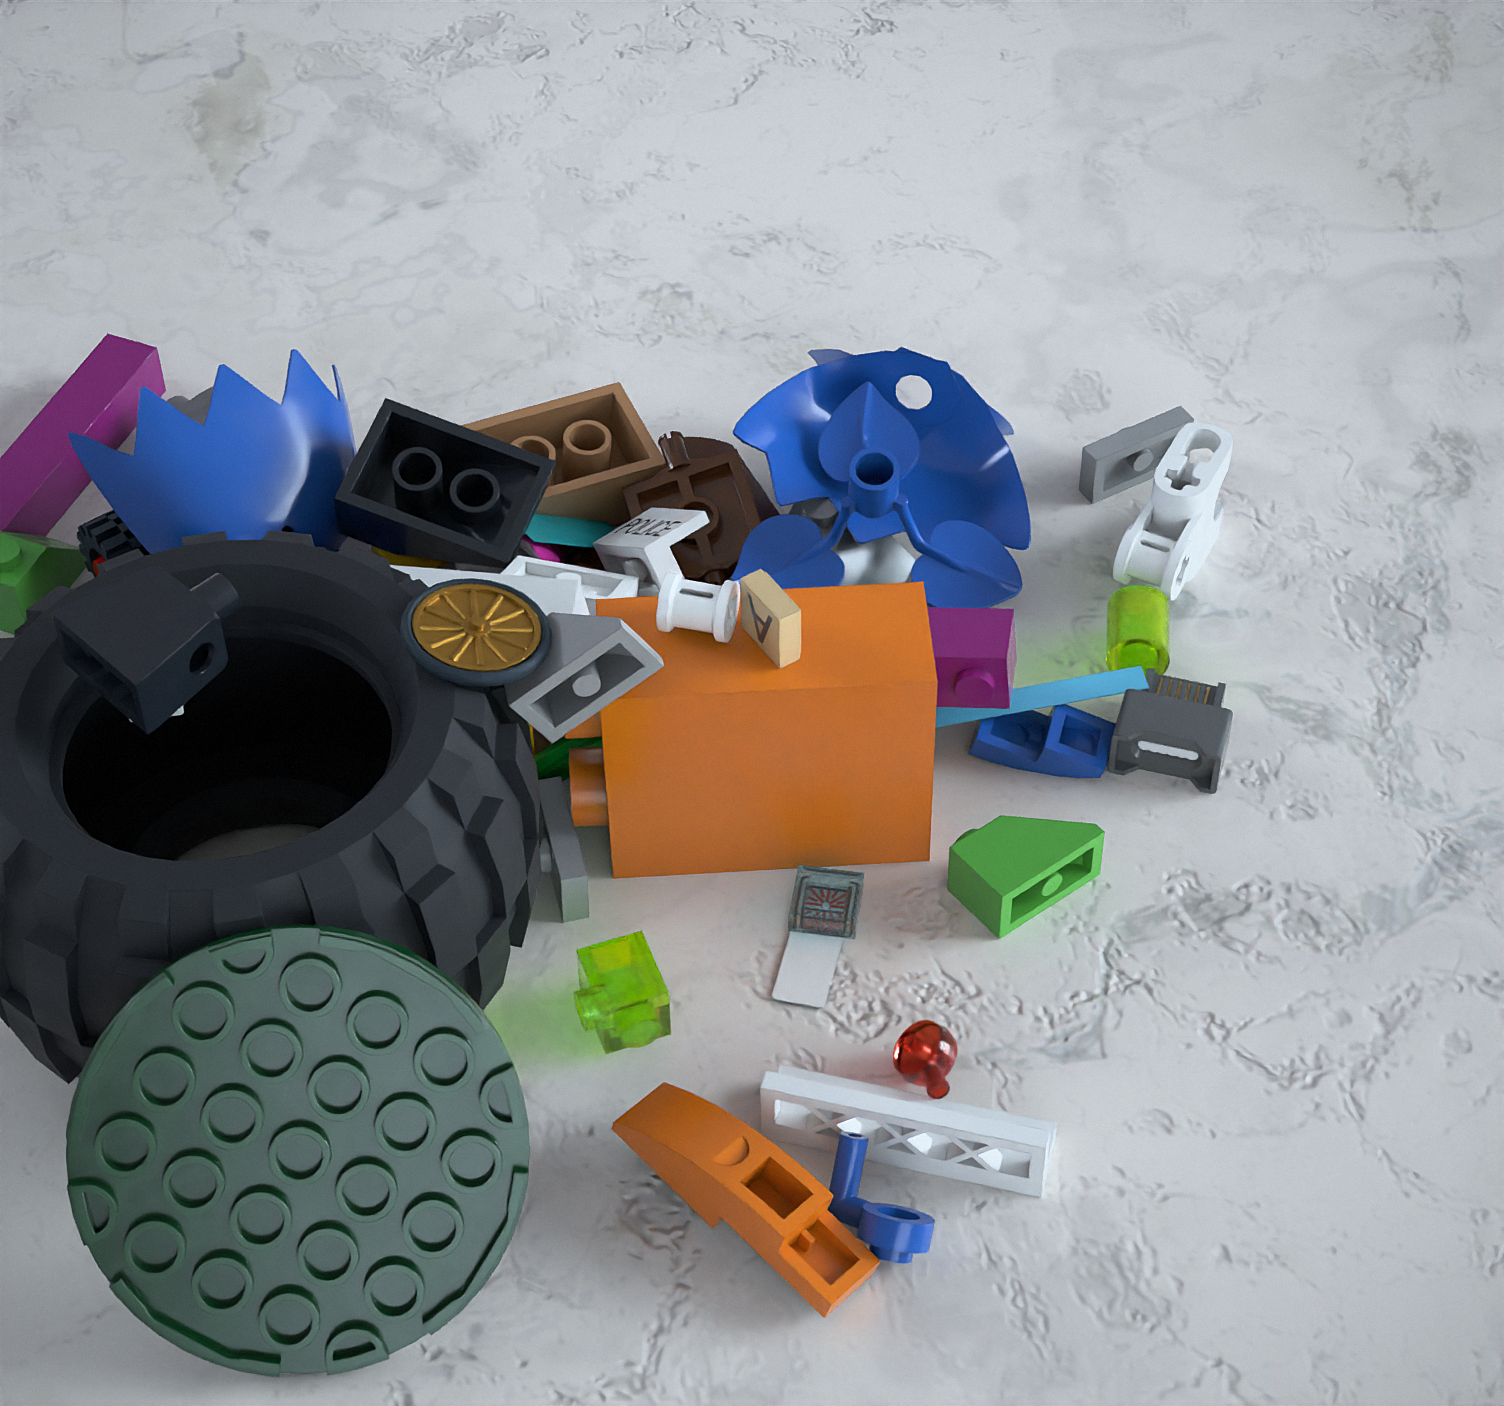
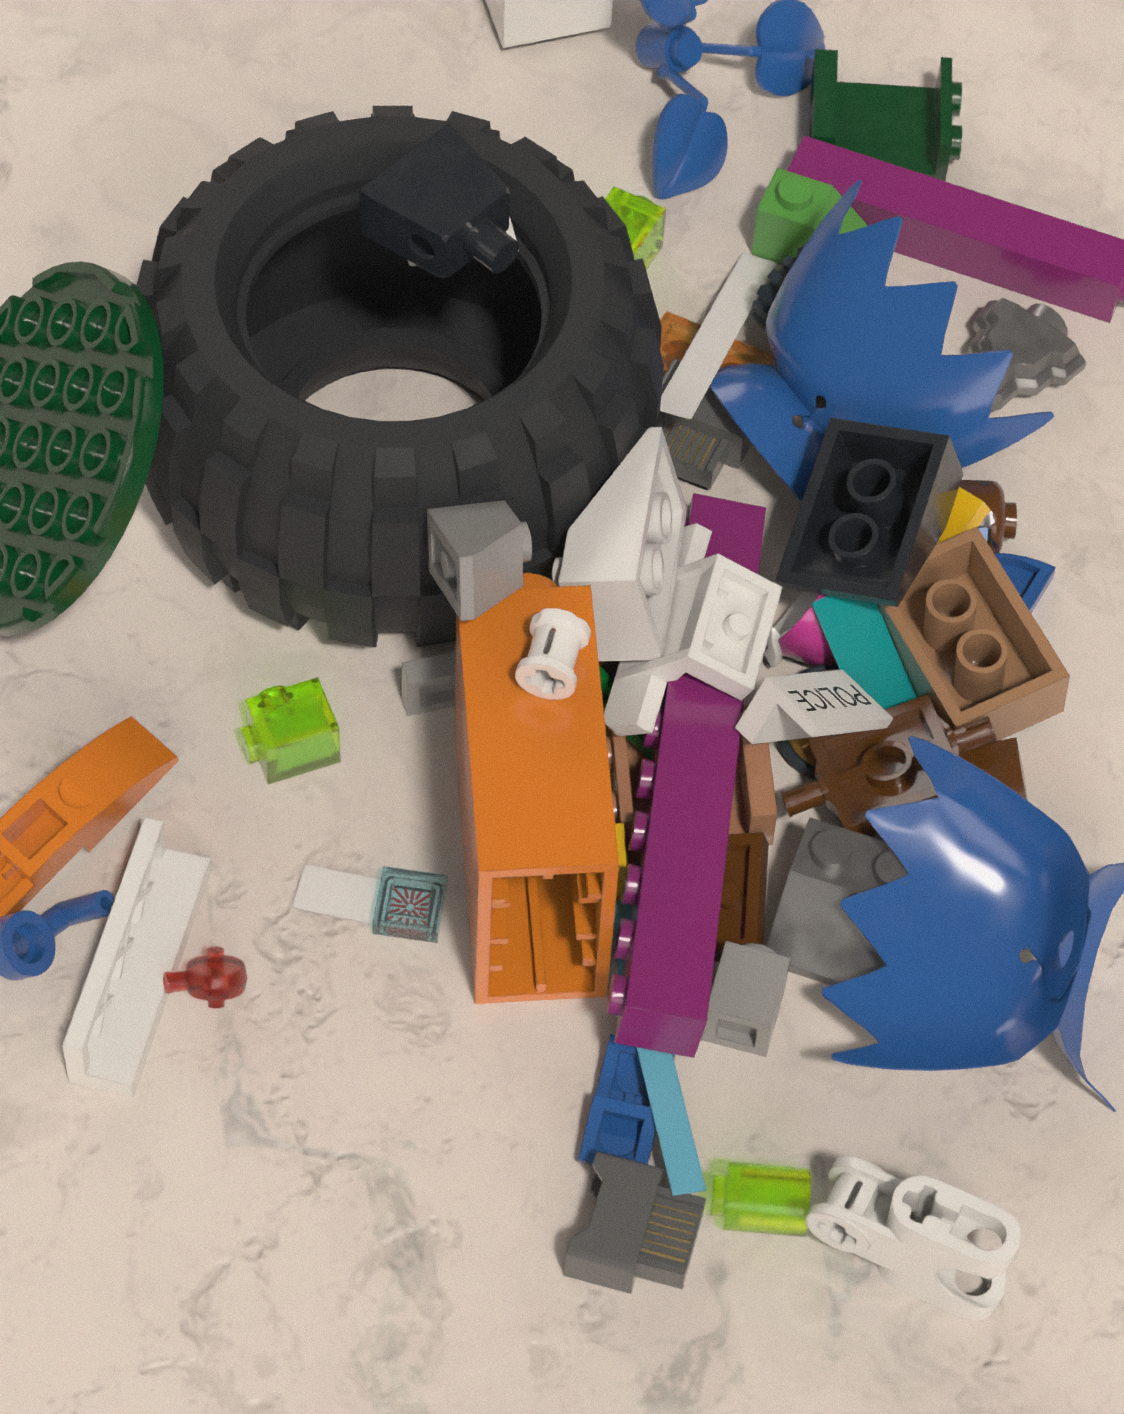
camera: 85 degrees right, 10 degrees up
(476, 632) = (481, 459): pearl gold wheel -> none
(771, 618) = (532, 712): tan tile -> none
(870, 451) = (811, 831): blue plant -> none
(1021, 867) = (433, 1063): bright green slope -> none
(1129, 455) = (1059, 1220): light grey plate -> none

